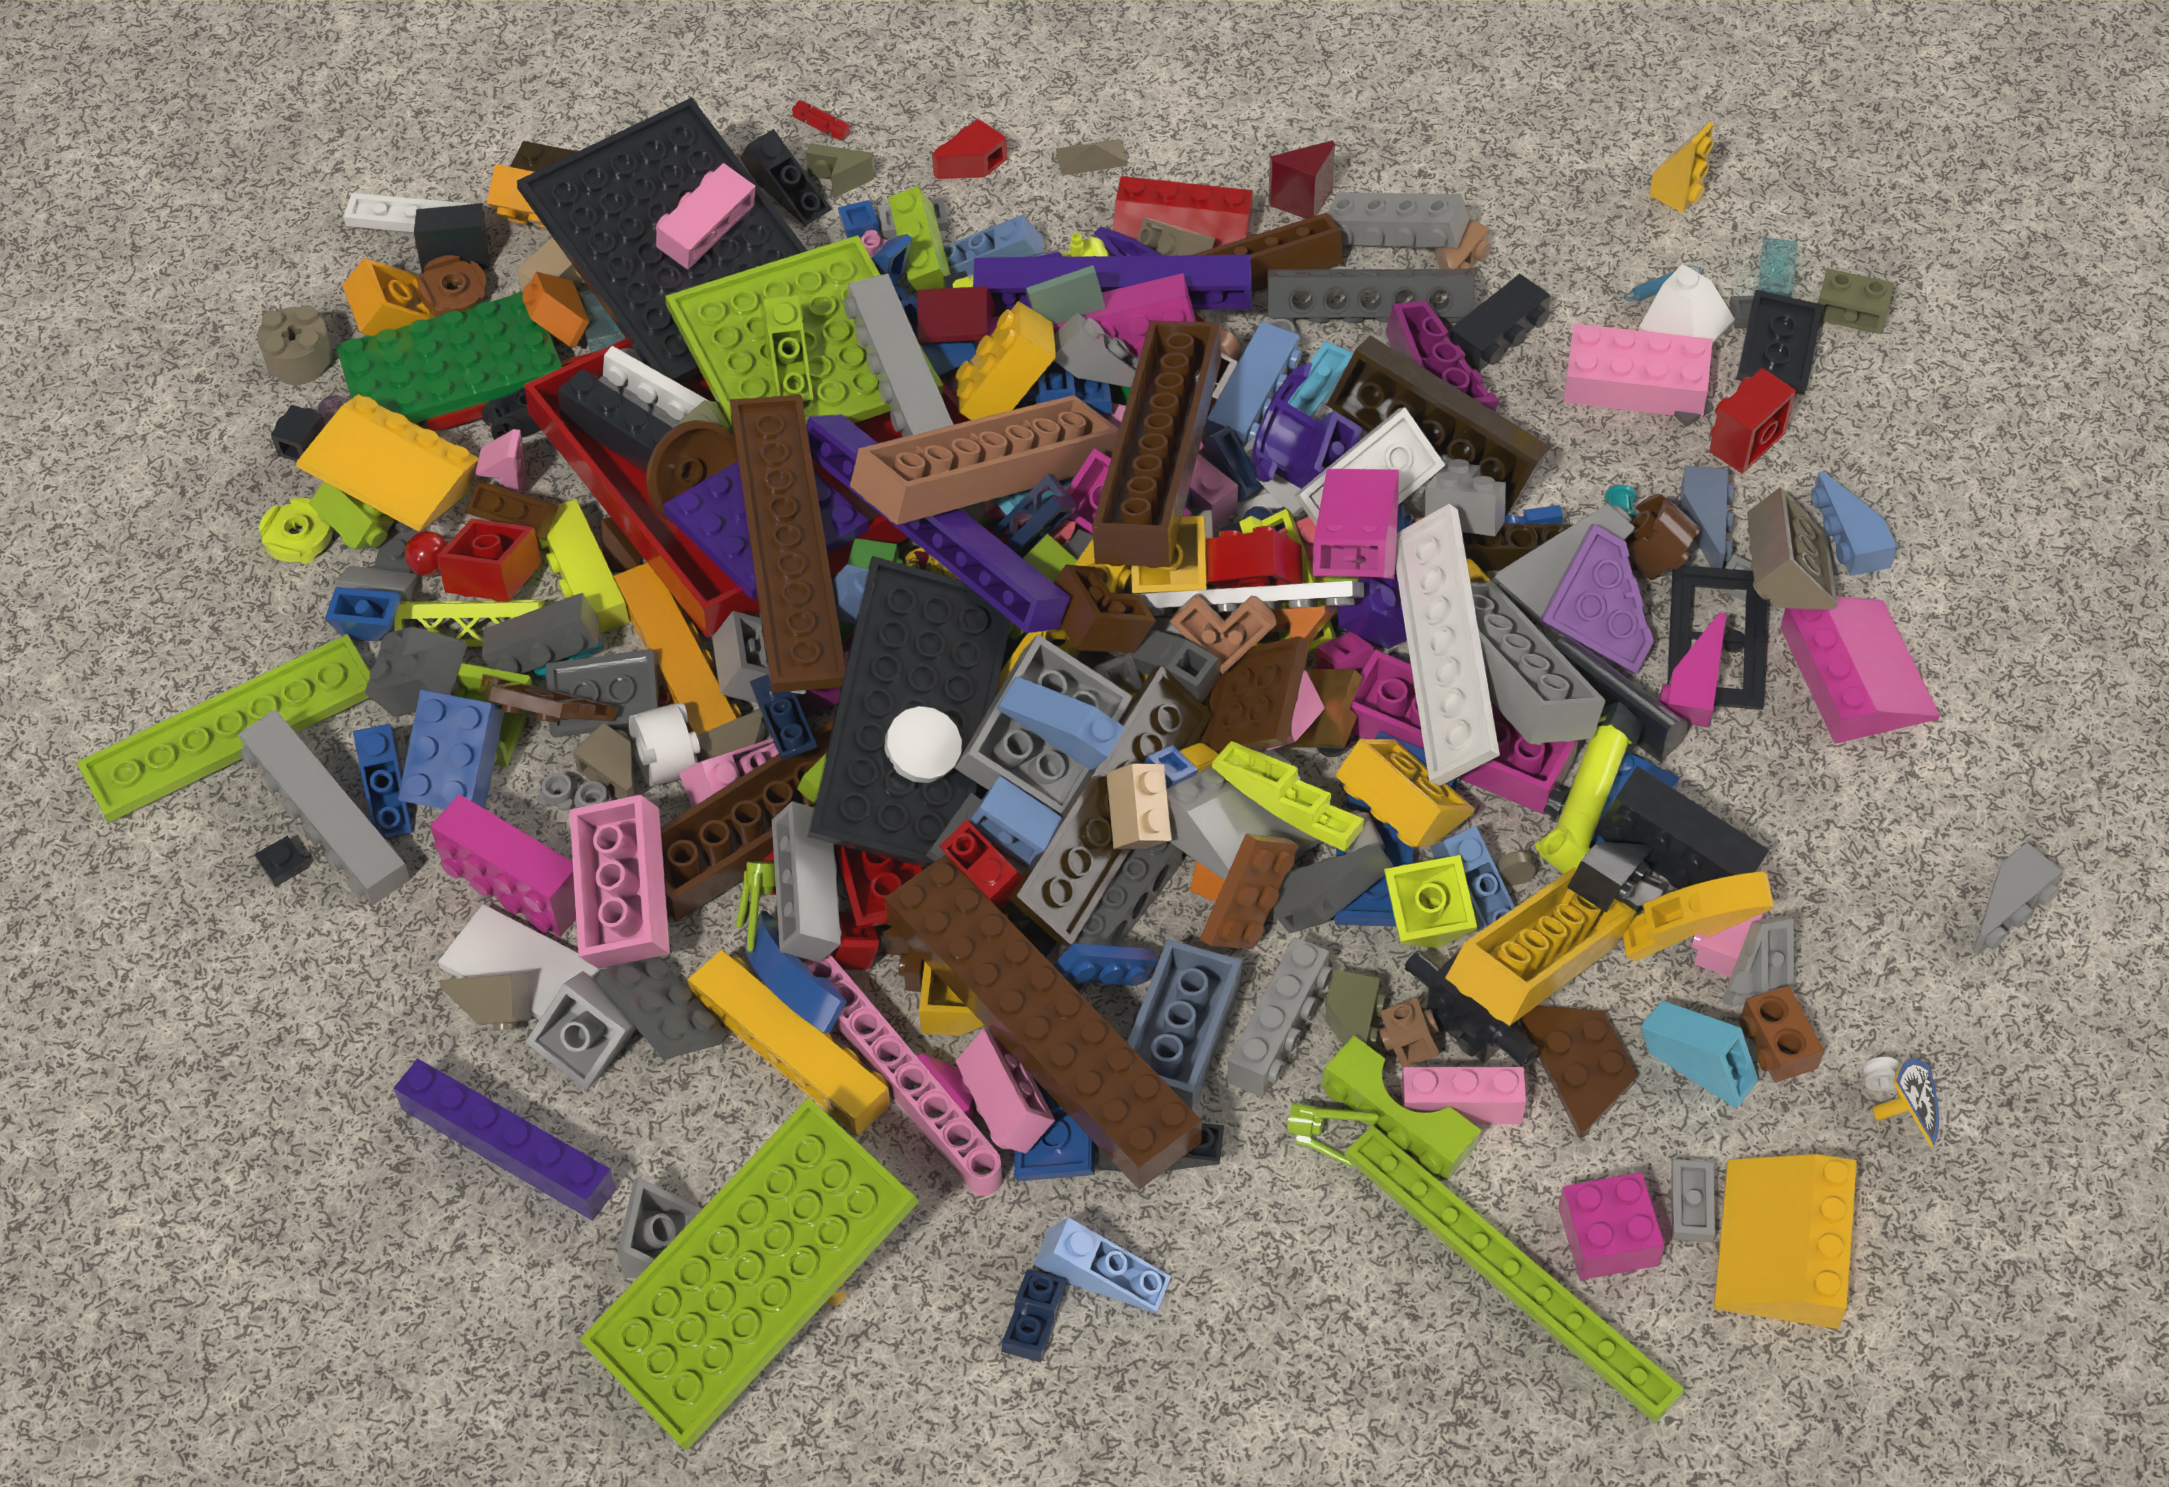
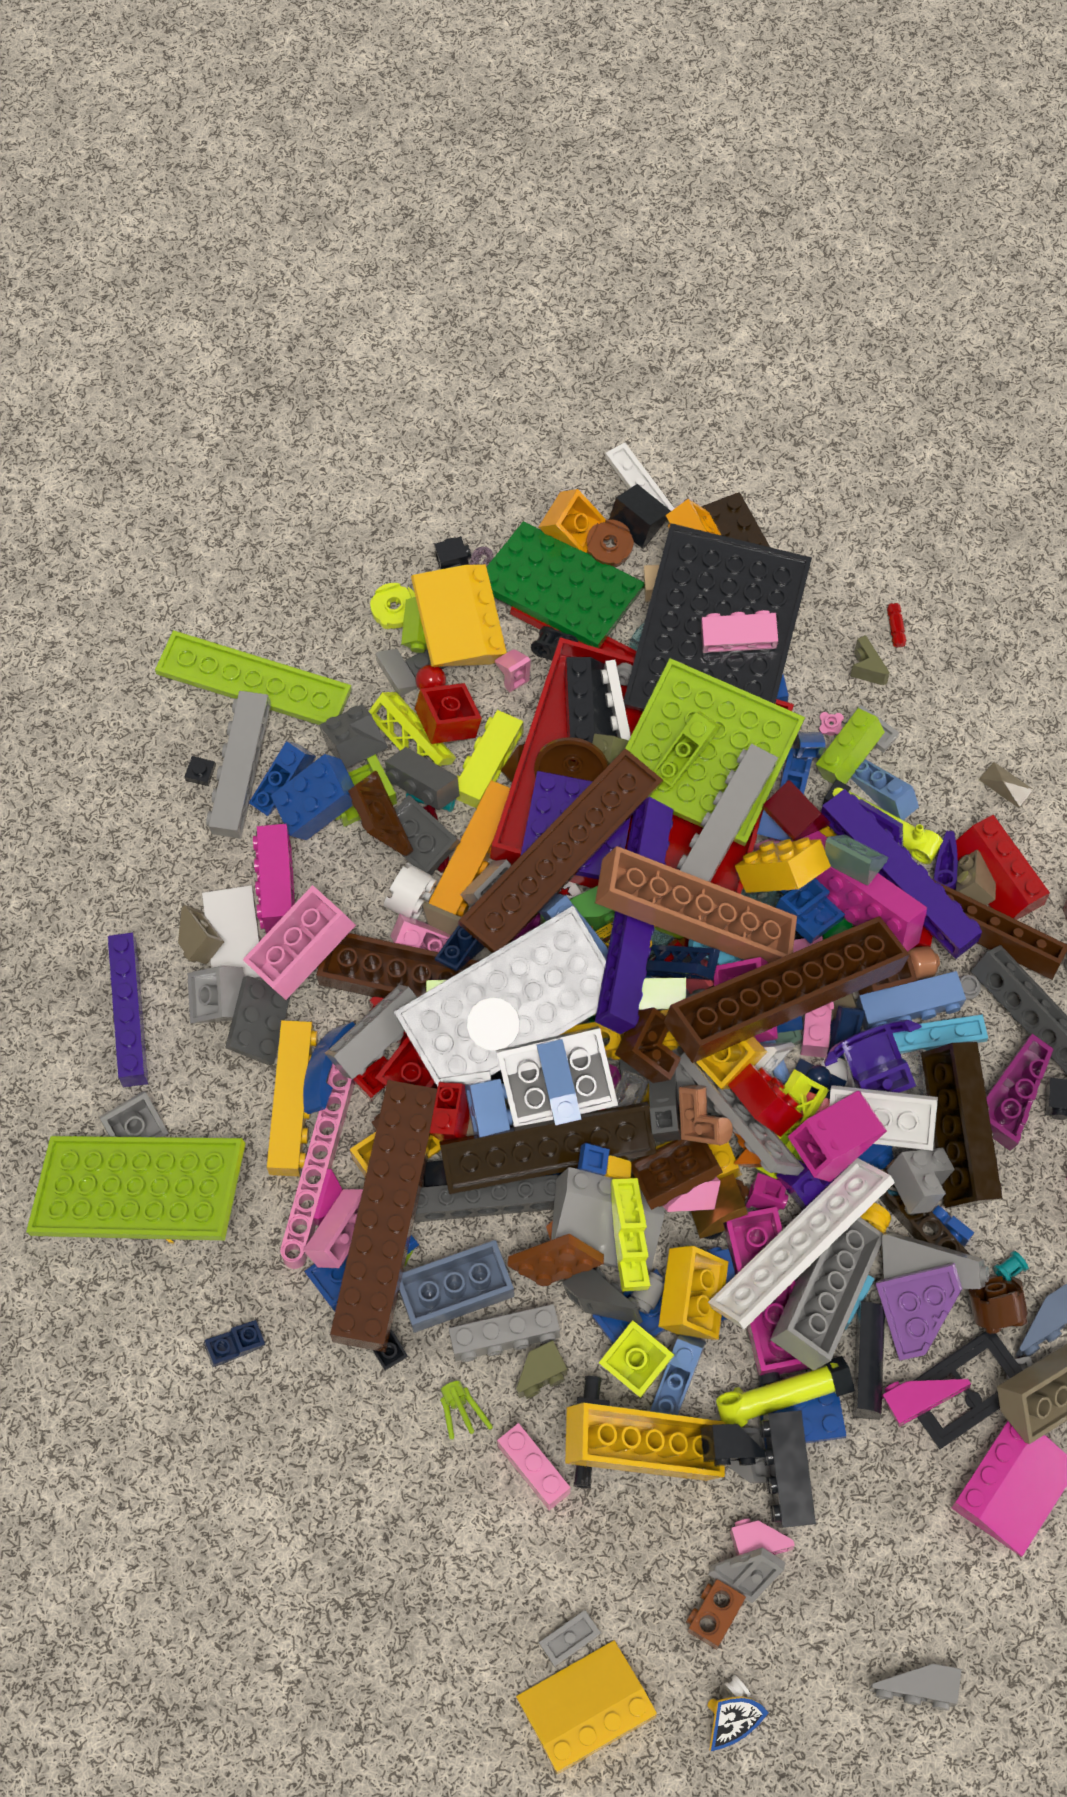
camera: 50 degrees right, 10 degrees up
(295, 344) = (503, 503): dark tan brick -> none
(362, 612) = (364, 681): blue slope -> none
(510, 507) = (490, 696): reddish brown tile -> none
(554, 783) = (346, 857): light grey plate -> none
(556, 307) = (634, 605): orange slope -> none
(591, 790) = (356, 878): light grey plate -> none
(609, 760) = (381, 873): dark tan slope -> none
(758, 880) = (361, 1008): lime plant -> none
(784, 178) = (834, 644): black slope -> none
(858, 218) = (843, 702): blue plate -> none
(970, 153) = (943, 721): red slope -> none
(1092, 354) = (834, 901): light grey slope -> none
(1100, 1266) = (285, 1358): light blue slope -> none
(1106, 964) = (453, 1221): blue plate -> none
(1138, 806) = (551, 1163): tan brick -> none
(1408, 1024) = (548, 1409): medium nougat brick -> none
(1436, 1138) = (498, 1474): lime arch -> none
(1515, 868) = (705, 1388): dark tan tile -> none
(1515, 1274) = (448, 1574): lime plate -> none
(1580, 1060) = (612, 1515): reddish brown wing -> none
(1611, 1226) = (515, 1605): dark pink brick -> none
(1697, 909) = (746, 1513): yellow slope -> none
(1702, 1050) = (666, 1577): medium azure slope -> none

